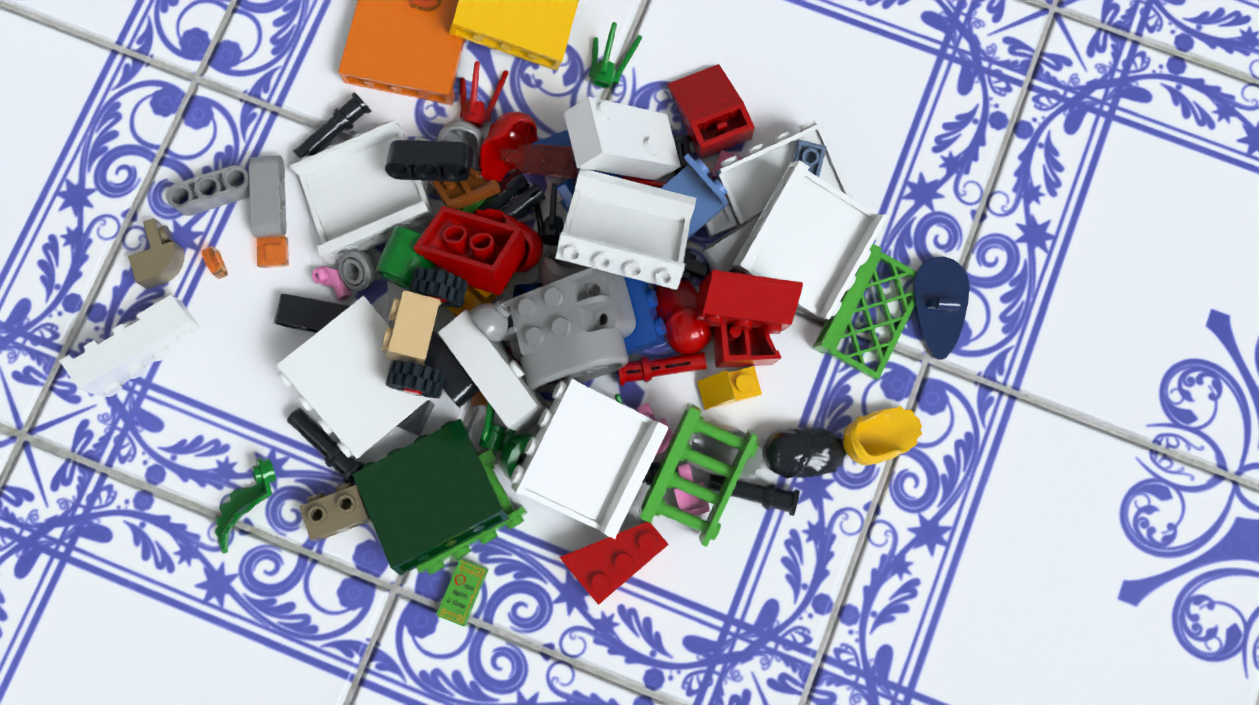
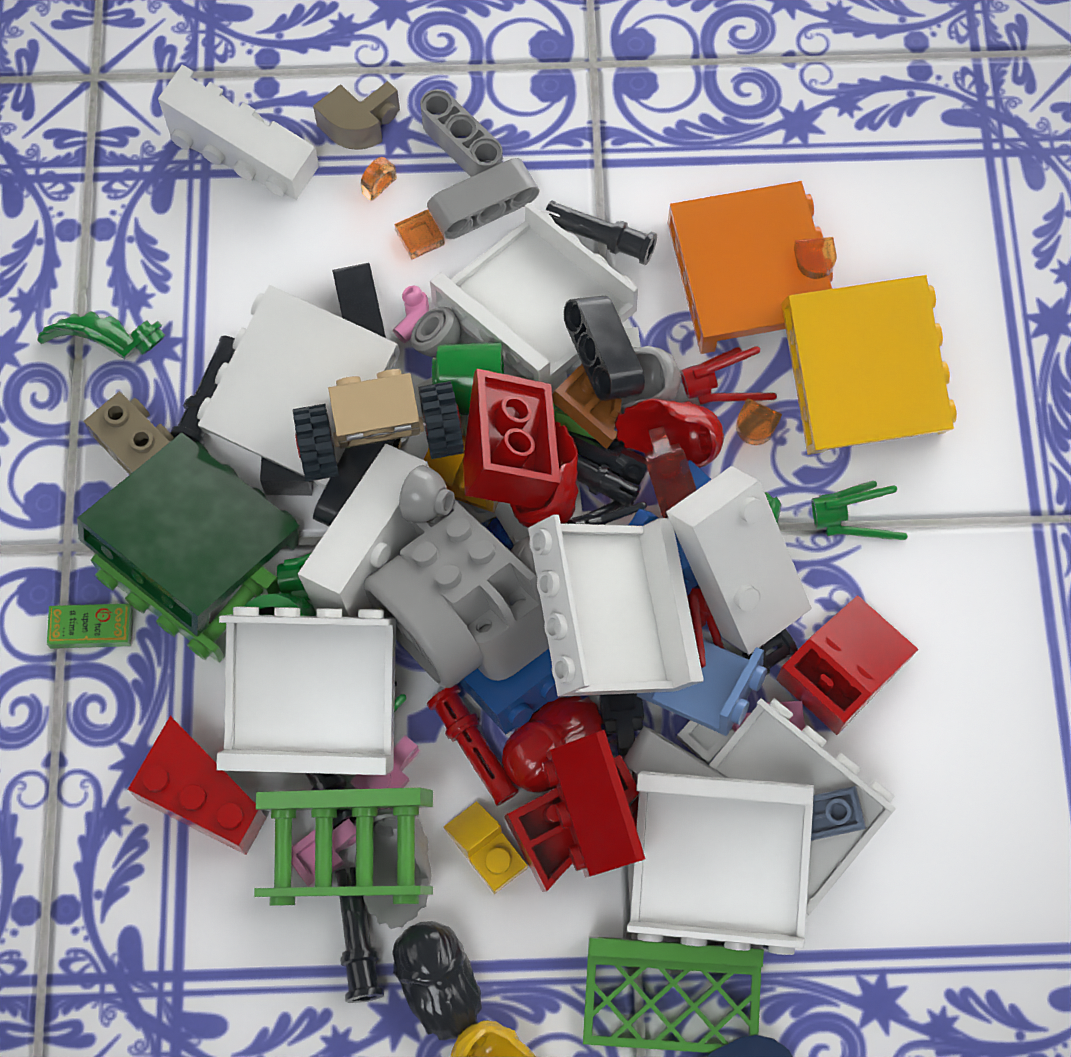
camera: 65 degrees right, 10 degrees down
(520, 91) = (756, 423): none -> clear orange tile

